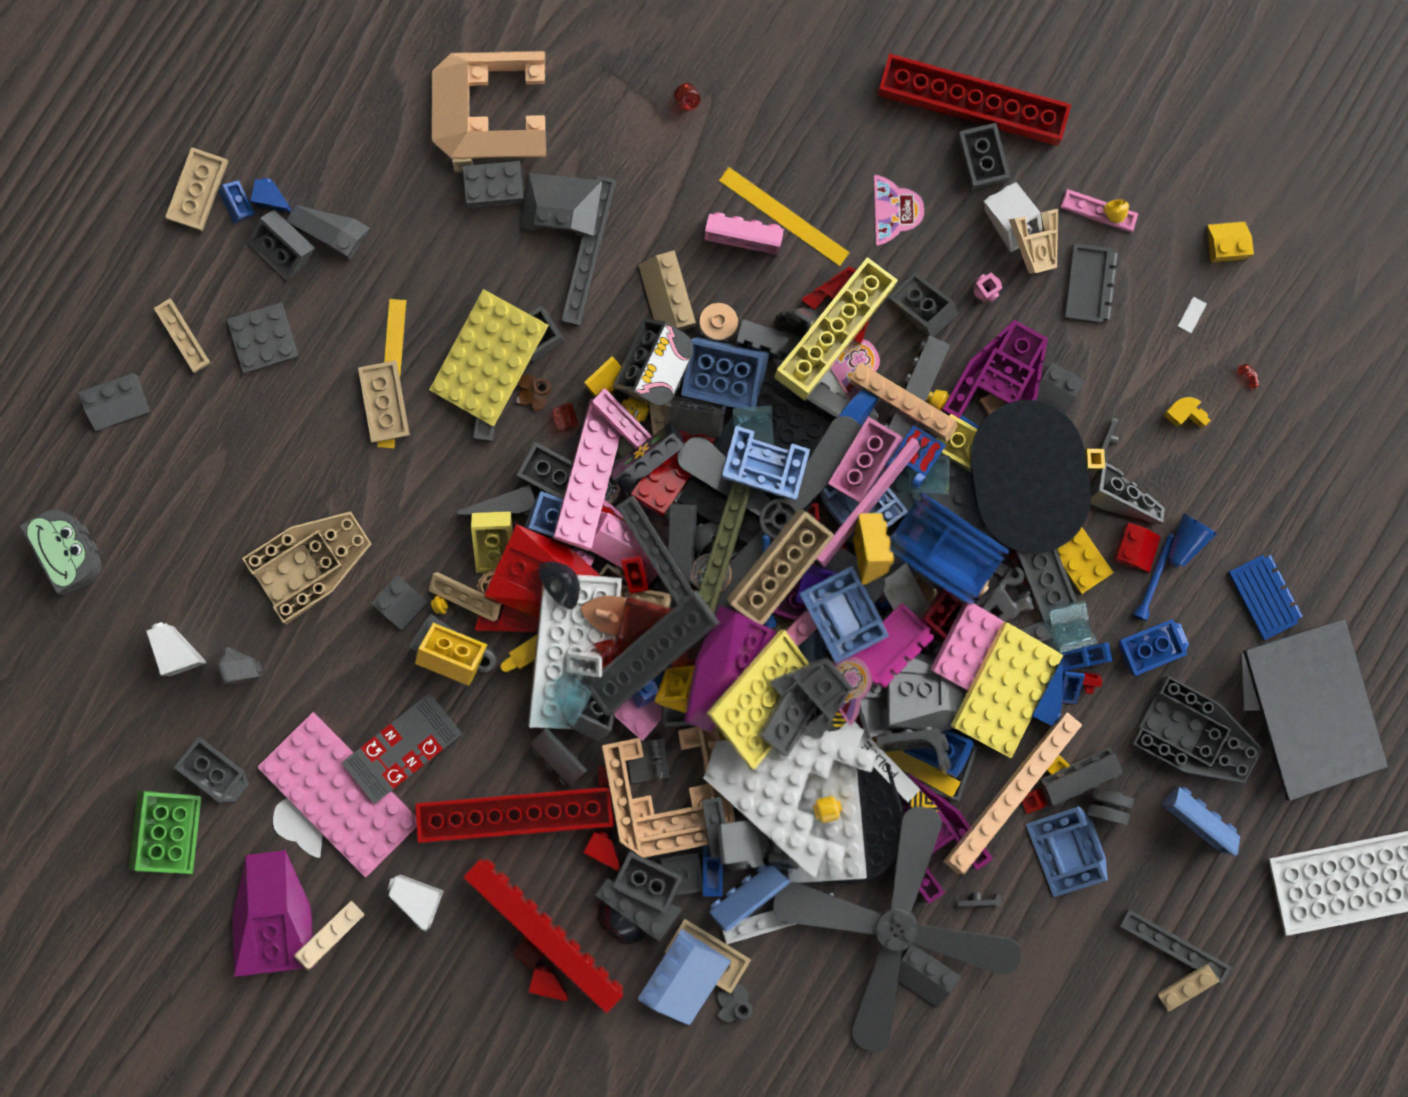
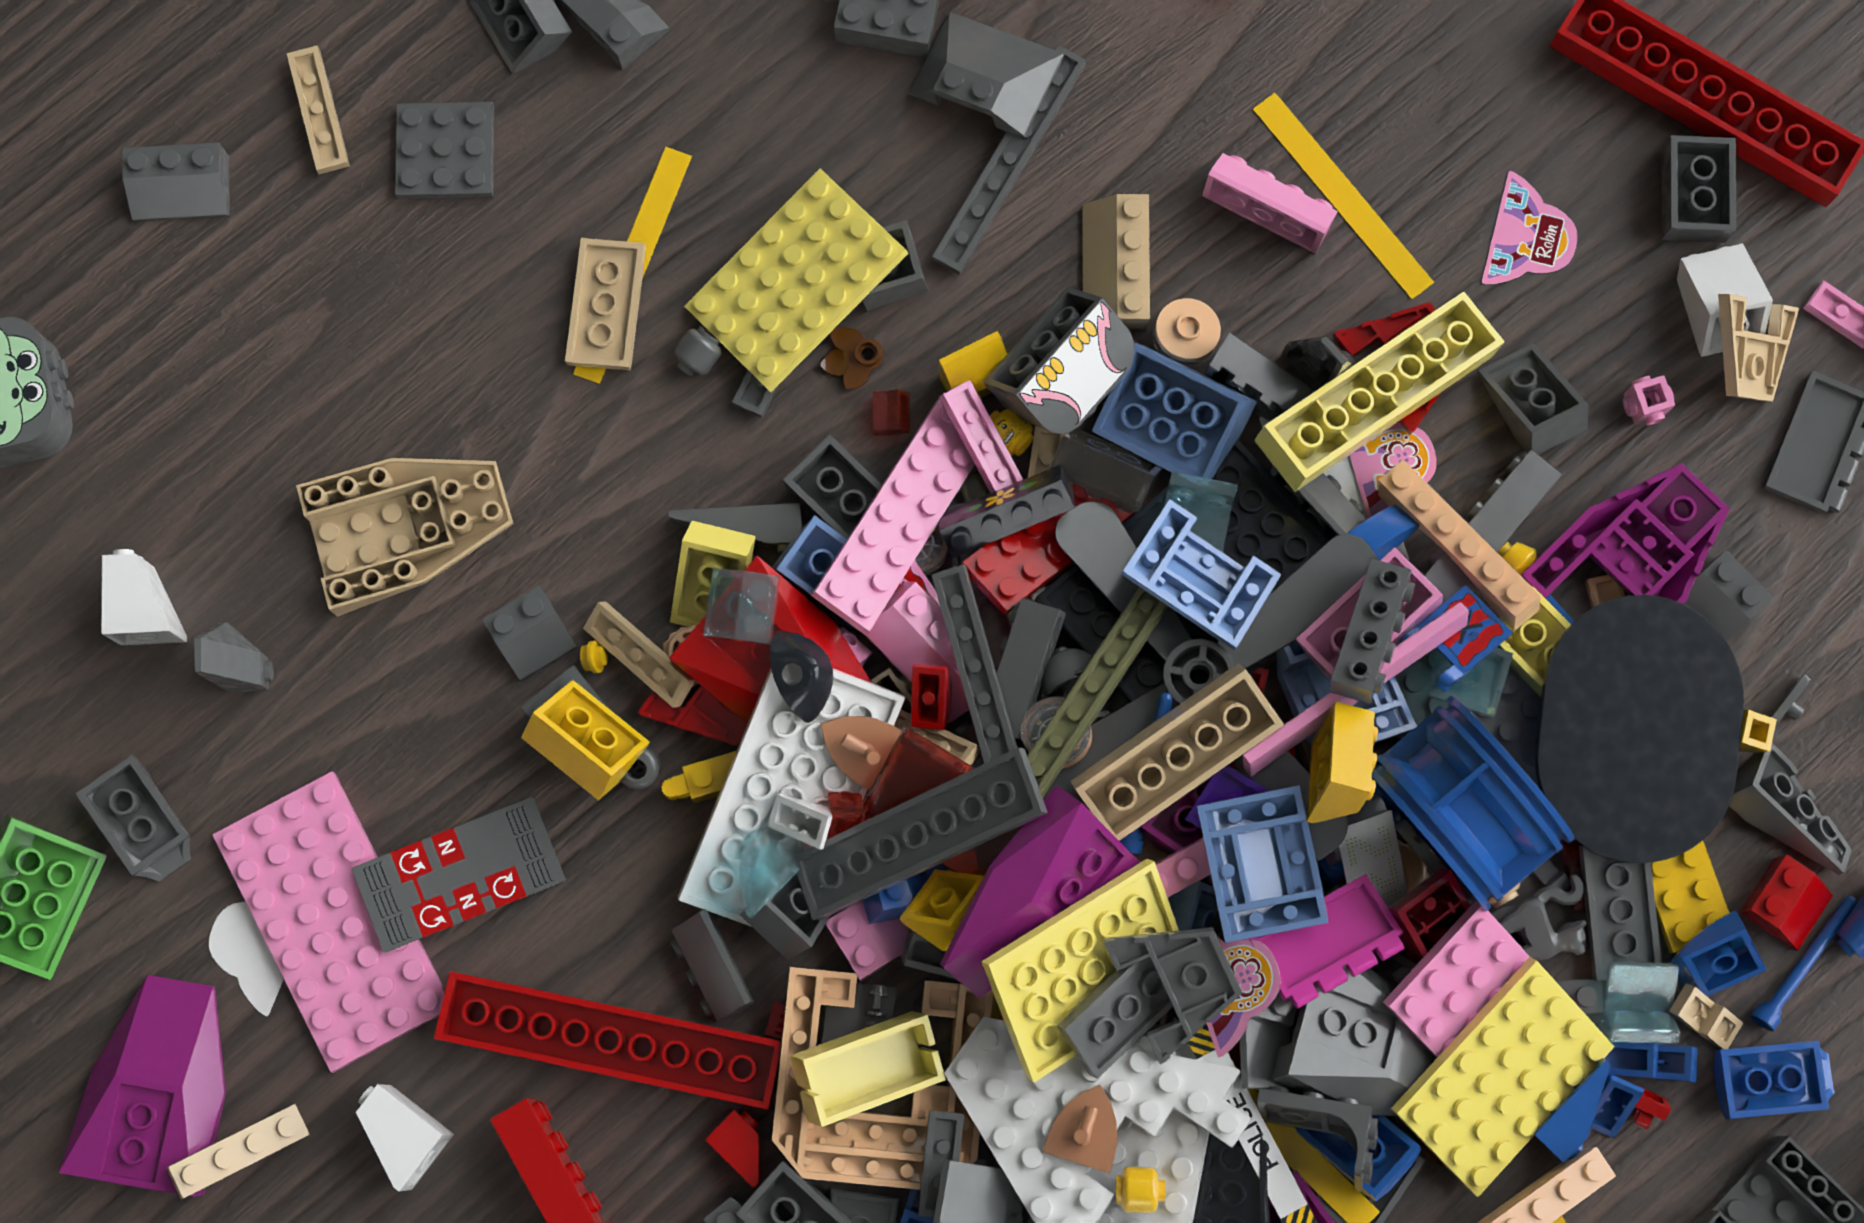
camera: 25 degrees right, 5 degrees down
(444, 414) = (697, 351): none -> dark grey head
(516, 556) = (742, 606): none -> clear light blue slope
(661, 788) = (867, 1068): none -> light yellow piece
(789, 786) = (1085, 1131): none -> nougat shield
(867, 469) = (1371, 631): none -> dark grey brick
(1106, 589) = (1718, 956): none -> blue slope
(1109, 623) = (1706, 1017): none -> tan slope

